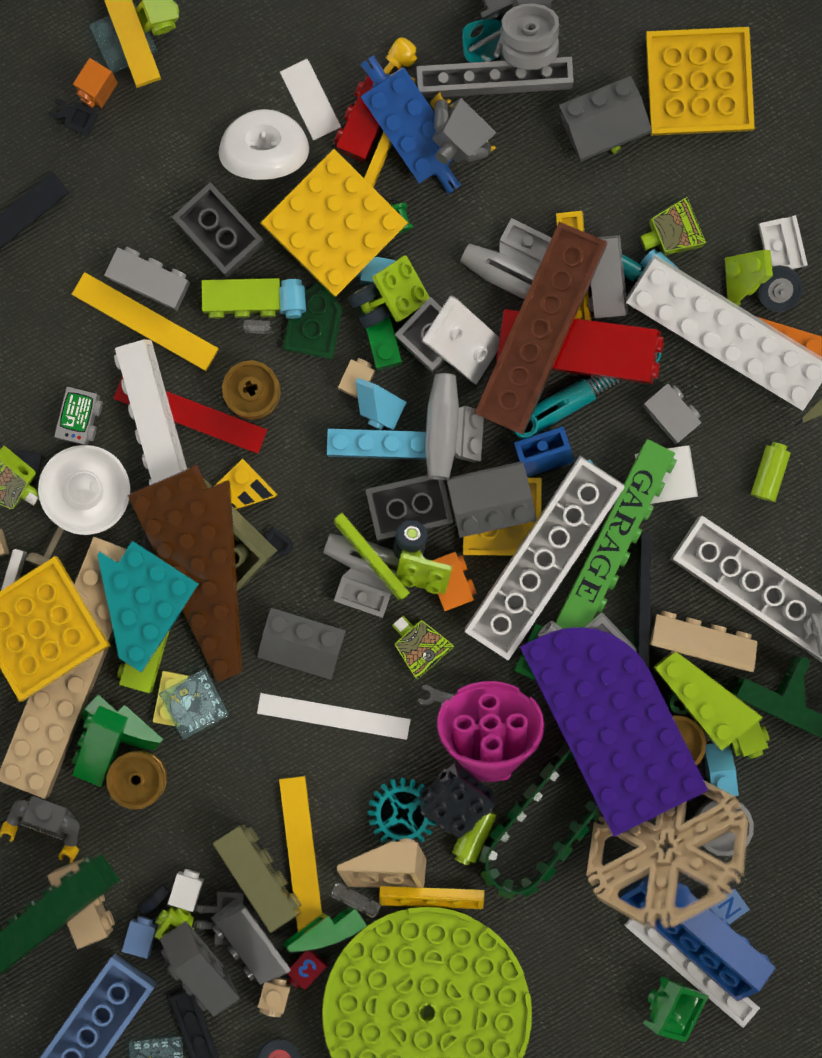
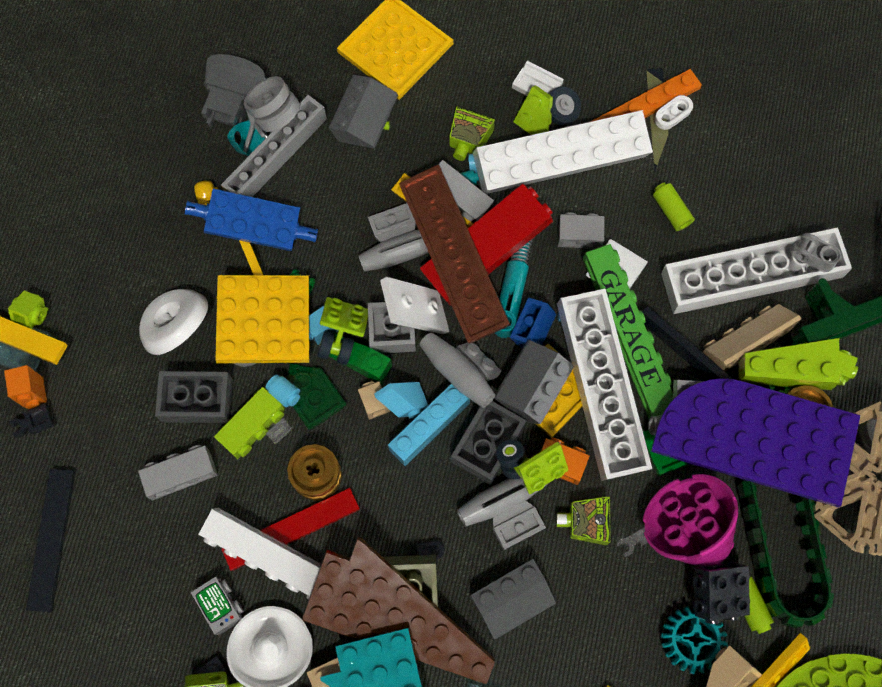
camera: 40 degrees left, 15 degrees down
(145, 321) = (202, 501): yellow tile -> none
(247, 486) = (375, 534): yellow wing -> none
(310, 99) = (176, 271): white sticker -> none
(333, 716) = (581, 626): white sticker -> none
(360, 129) = (222, 252): red brick -> none
(370, 557) = (500, 493): lime tile -> none
(459, 131) = (285, 193): dark grey torso -> none
(721, 769) = (848, 399): medium azure slope -> none

